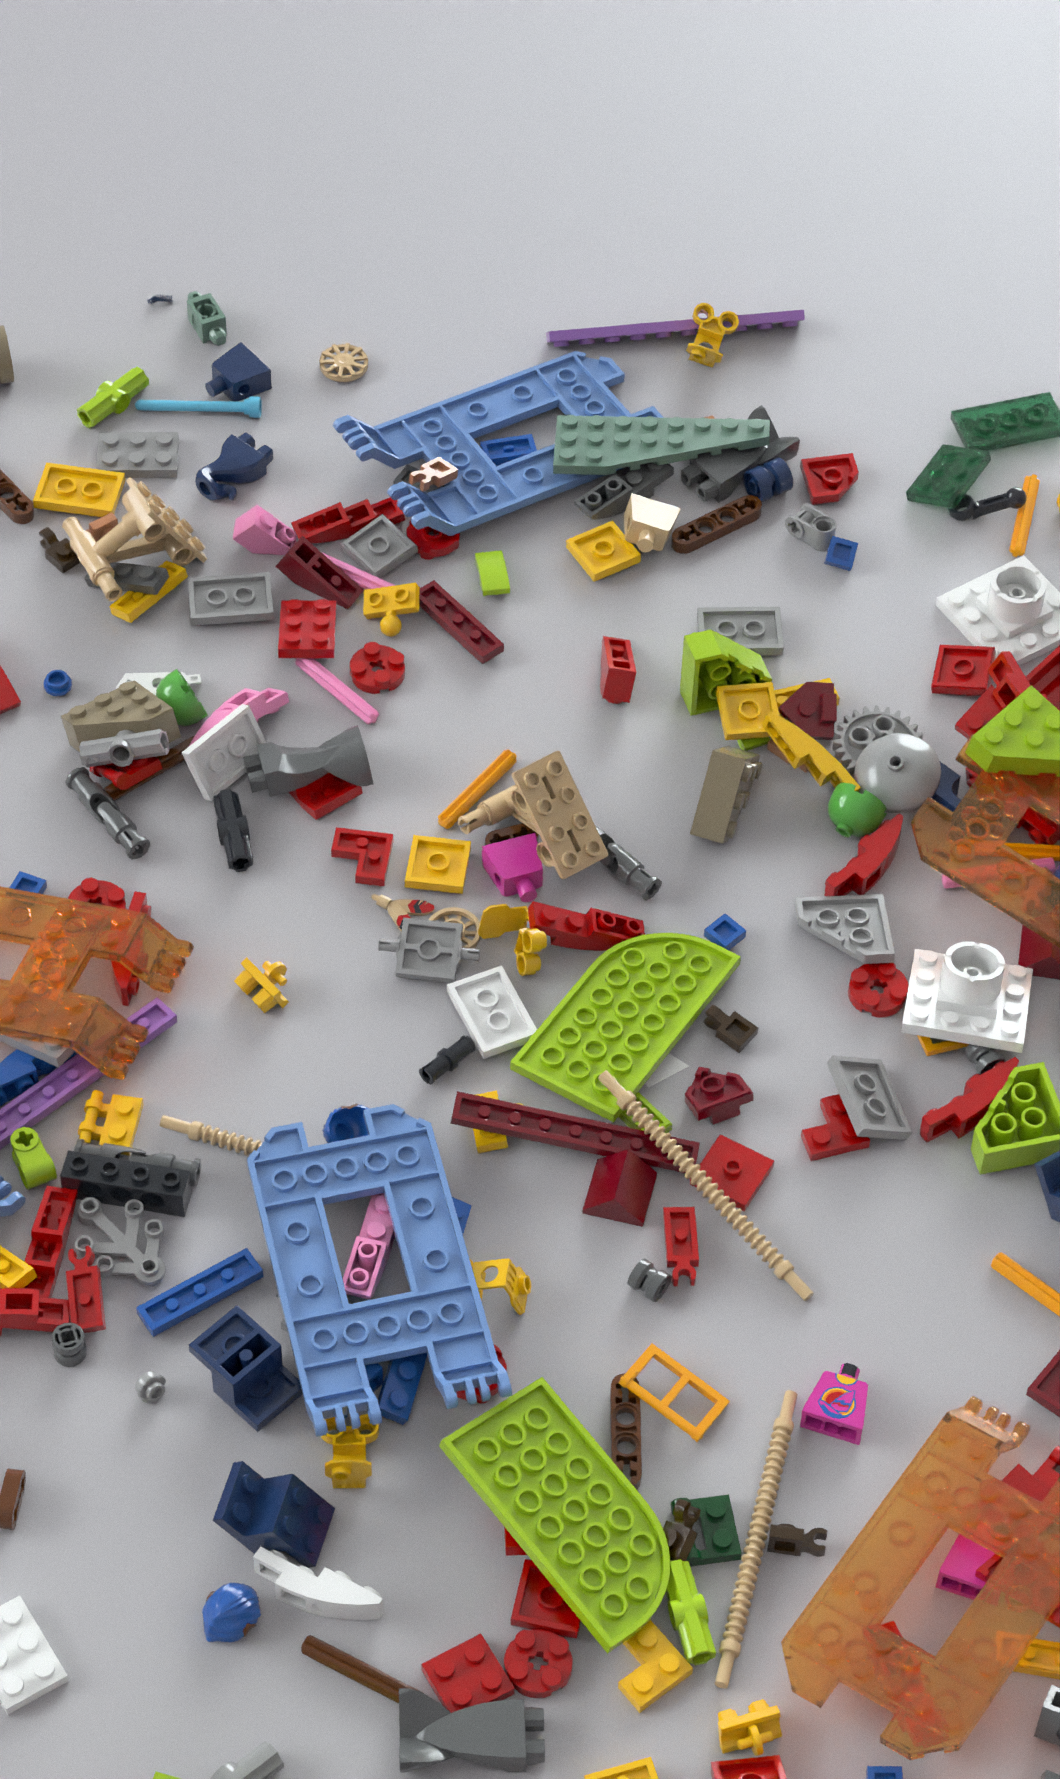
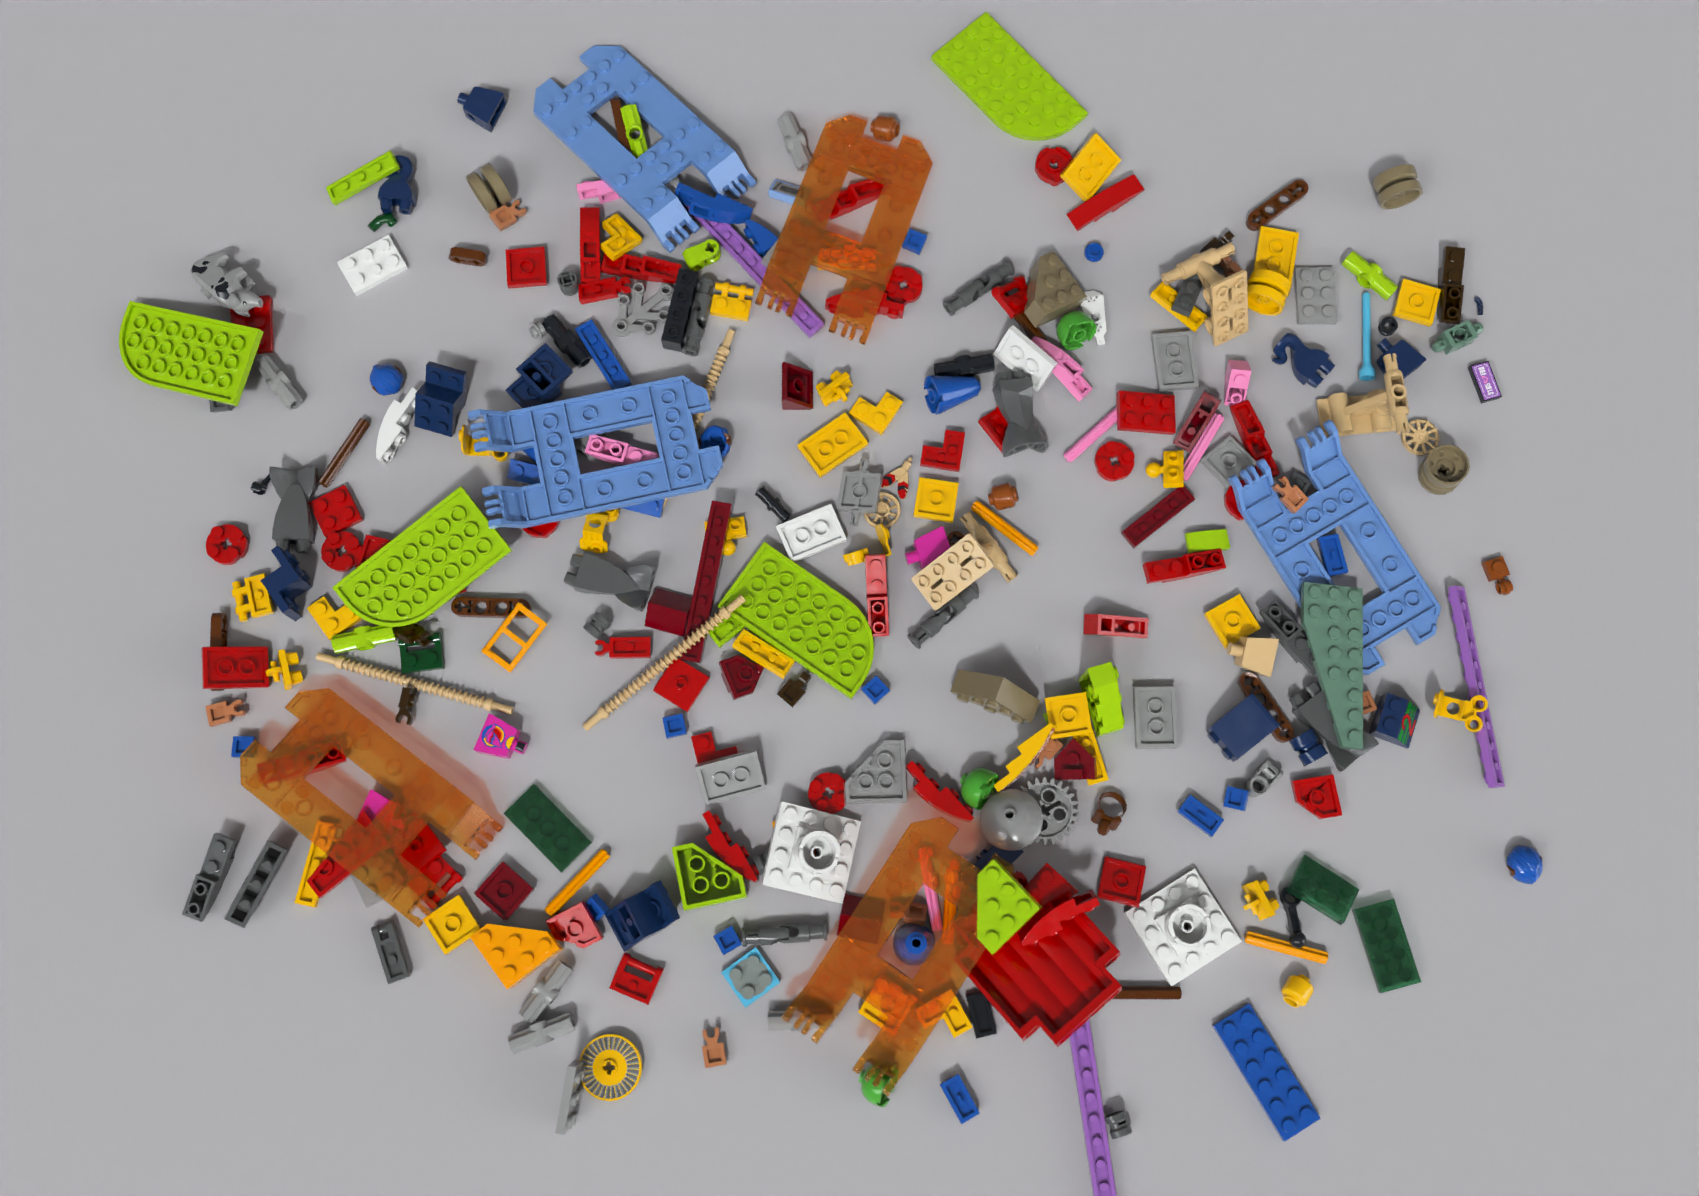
camera: 90 degrees right, 25 degrees up
(35, 1410) = (526, 267): none -> red plate
(110, 749) = (1020, 290): light grey piece -> none
(140, 323) = (1451, 285): none -> dark brown slope
(153, 477) = (1267, 292): none -> yellow wheel
(155, 354) = (1416, 302): none -> yellow plate
(170, 1343) = (566, 341): none -> black piece
(186, 379) = (1385, 332): none -> black bush
(260, 1038) = (796, 388): none -> dark red slope
(267, 299) = (1484, 382): none -> tile
(276, 846) = (949, 391): none -> blue cone
(305, 936) = (876, 417): none -> yellow plate
(310, 401) = (1370, 413): none -> tan plate
(353, 987) = (832, 445): none -> yellow plate
(394, 334) = (1447, 460): none -> dark tan wheel
(432, 785) = (1003, 496): none -> dark orange head
(524, 304) = (1496, 570): none -> dark orange plate
(529, 593) = (1184, 567): none -> red slope
(572, 1272) = (602, 577): none -> dark grey hips
(604, 1725) = (287, 583): none -> dark blue bracket
(680, 1066) = (763, 654): none -> yellow plate
(723, 401) = (1394, 720): none -> dark blue slope
(748, 538) = (1242, 728): none -> dark blue slope
(797, 1175) = (674, 726): none -> blue plate
(867, 590) = (1200, 815): none -> blue plate
(882, 685) = (1105, 822): none -> reddish brown piece
(894, 296) = (1524, 864): none -> blue hair
(967, 1338) = (548, 828): none -> clear green plate
(969, 536) = (1258, 901): none -> yellow hips

